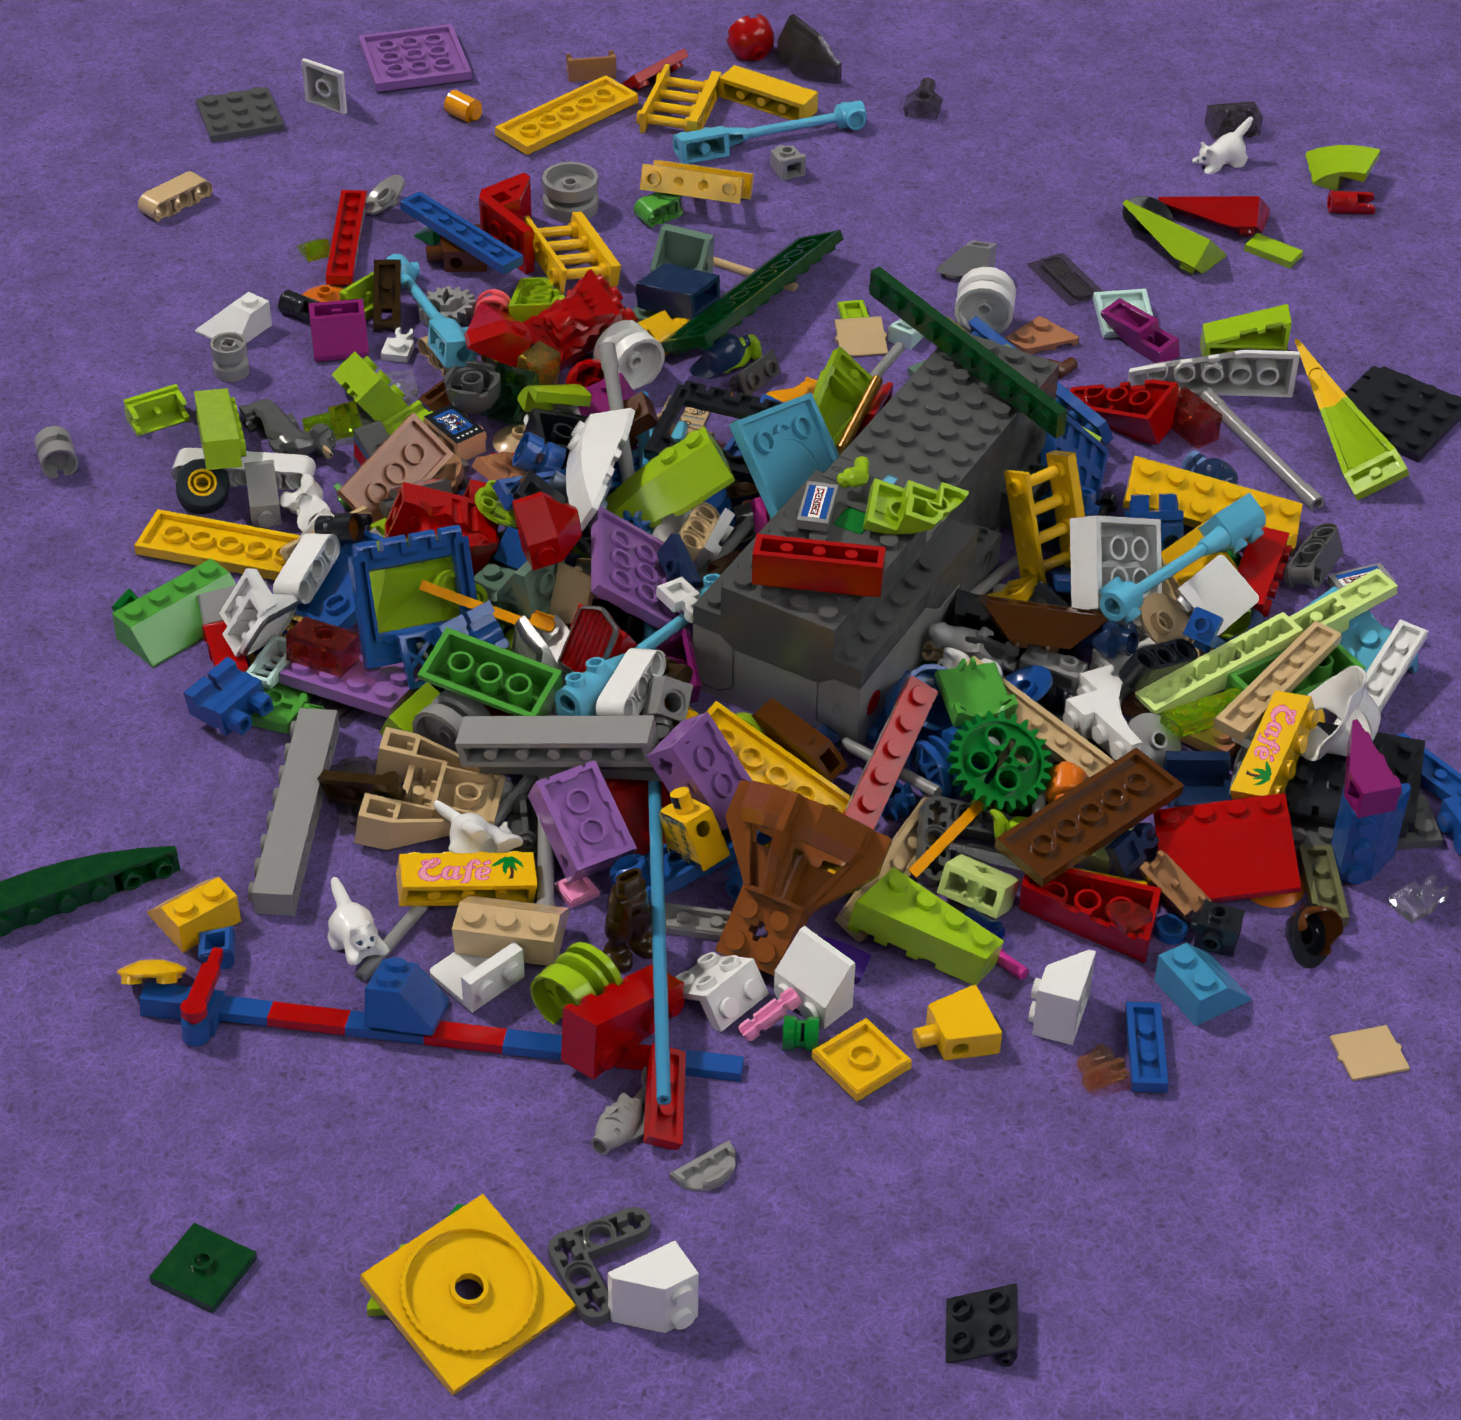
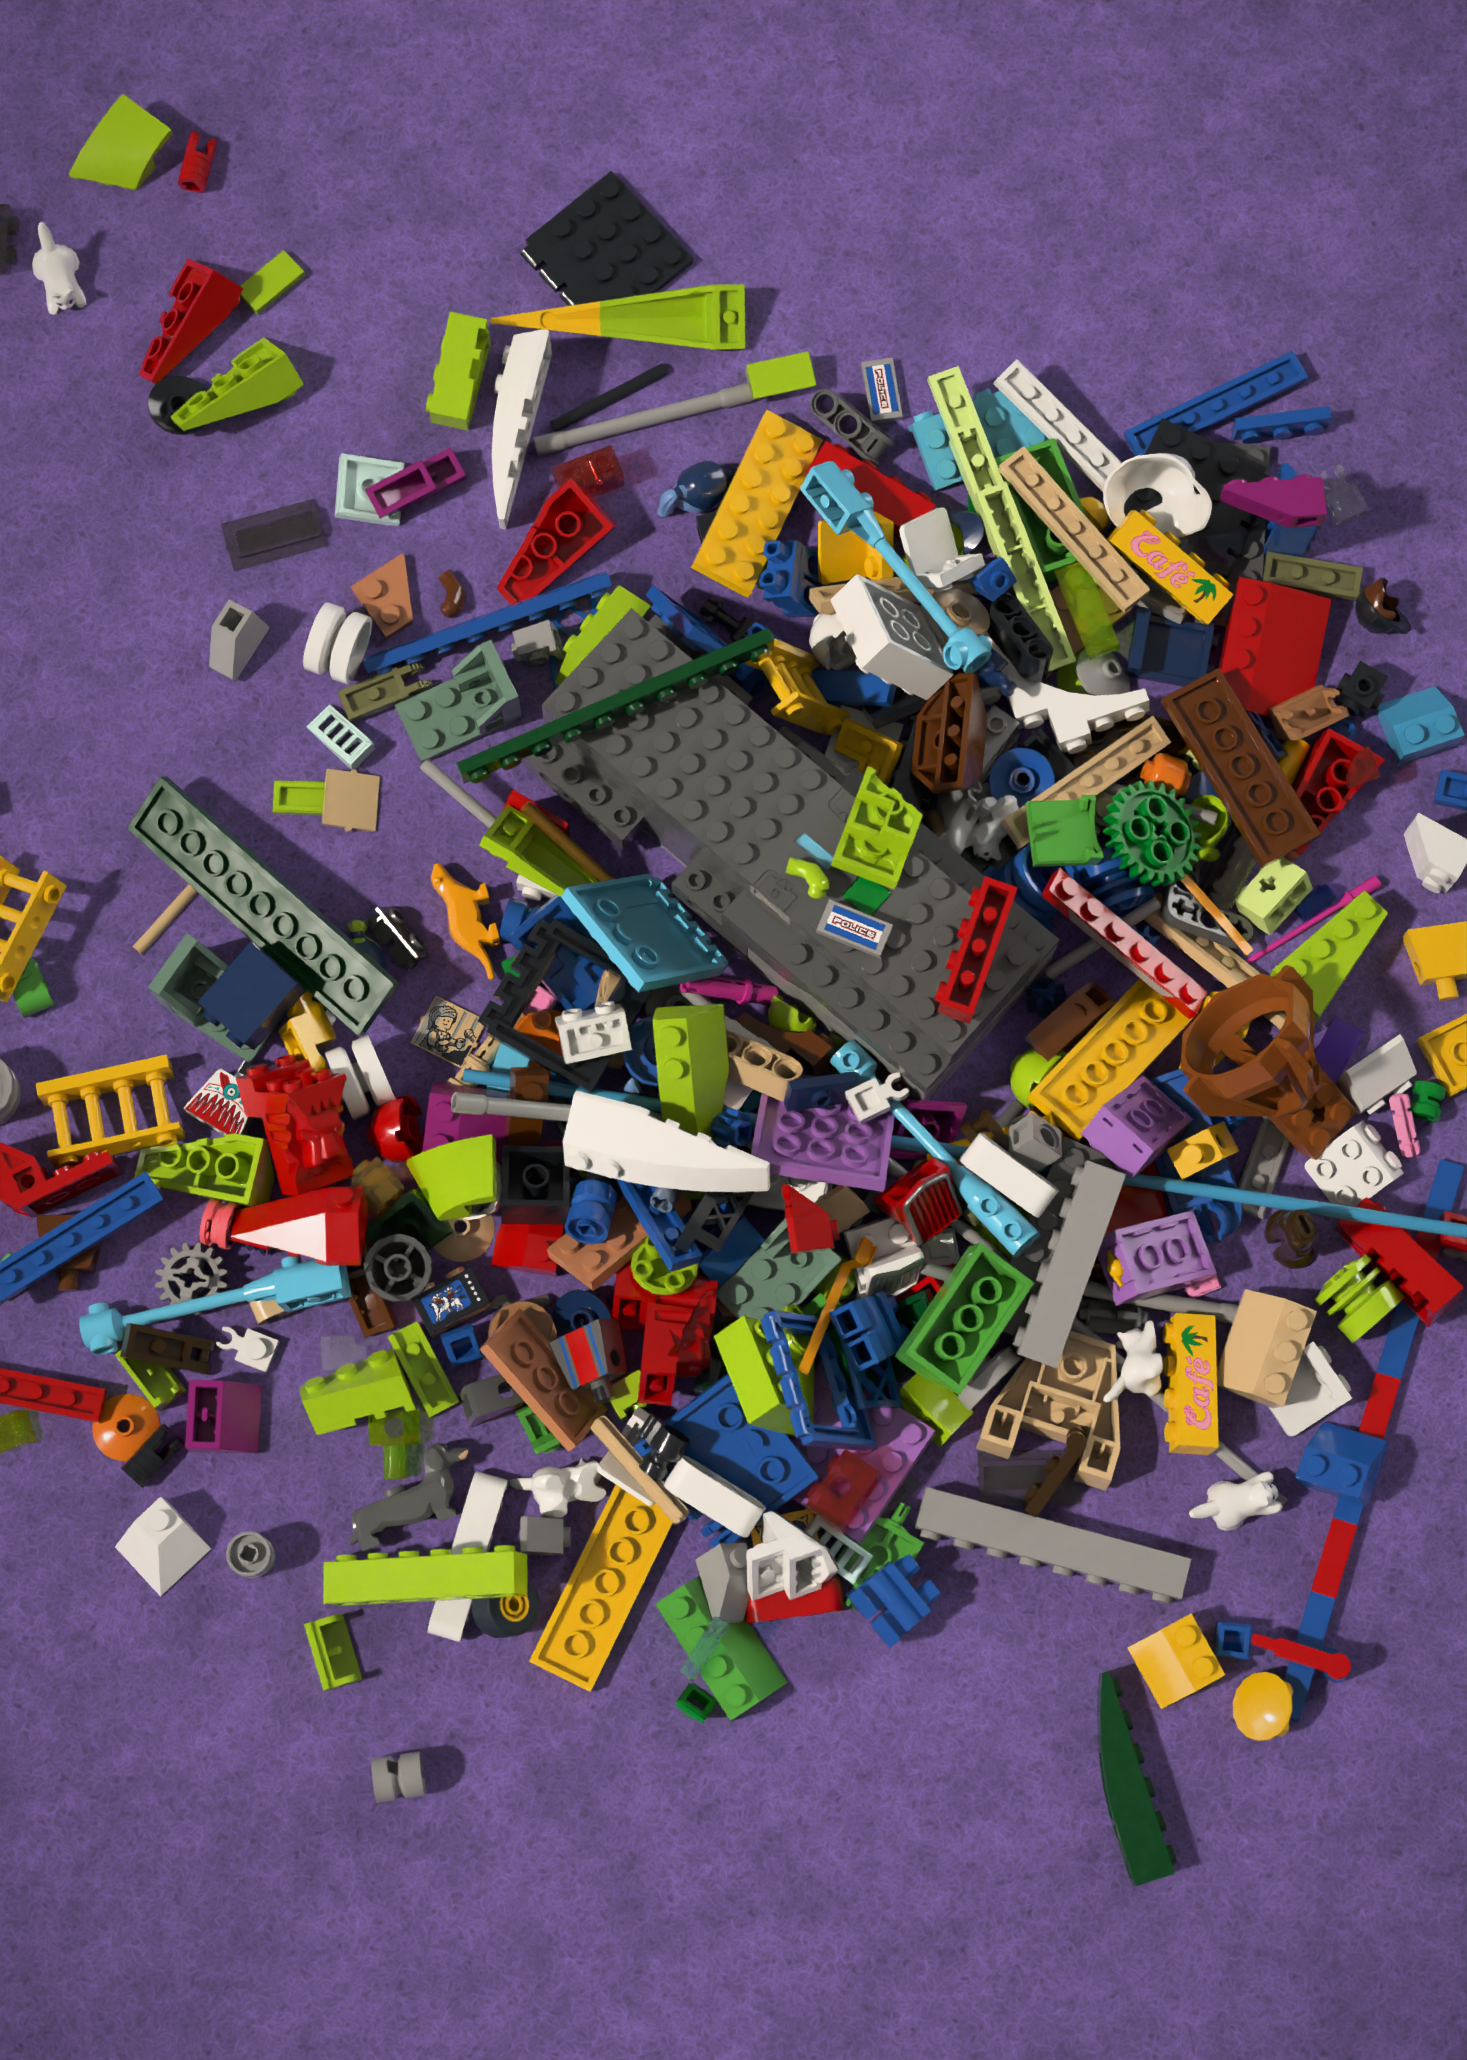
camera: 80 degrees left, 35 degrees up
(172, 579) = (704, 1648): none -> clear light blue axle
(689, 420) = (593, 1032): none -> white bracket
(1271, 430) = (608, 397): none -> black bar
(1341, 511) = (780, 375): none -> lime hinge

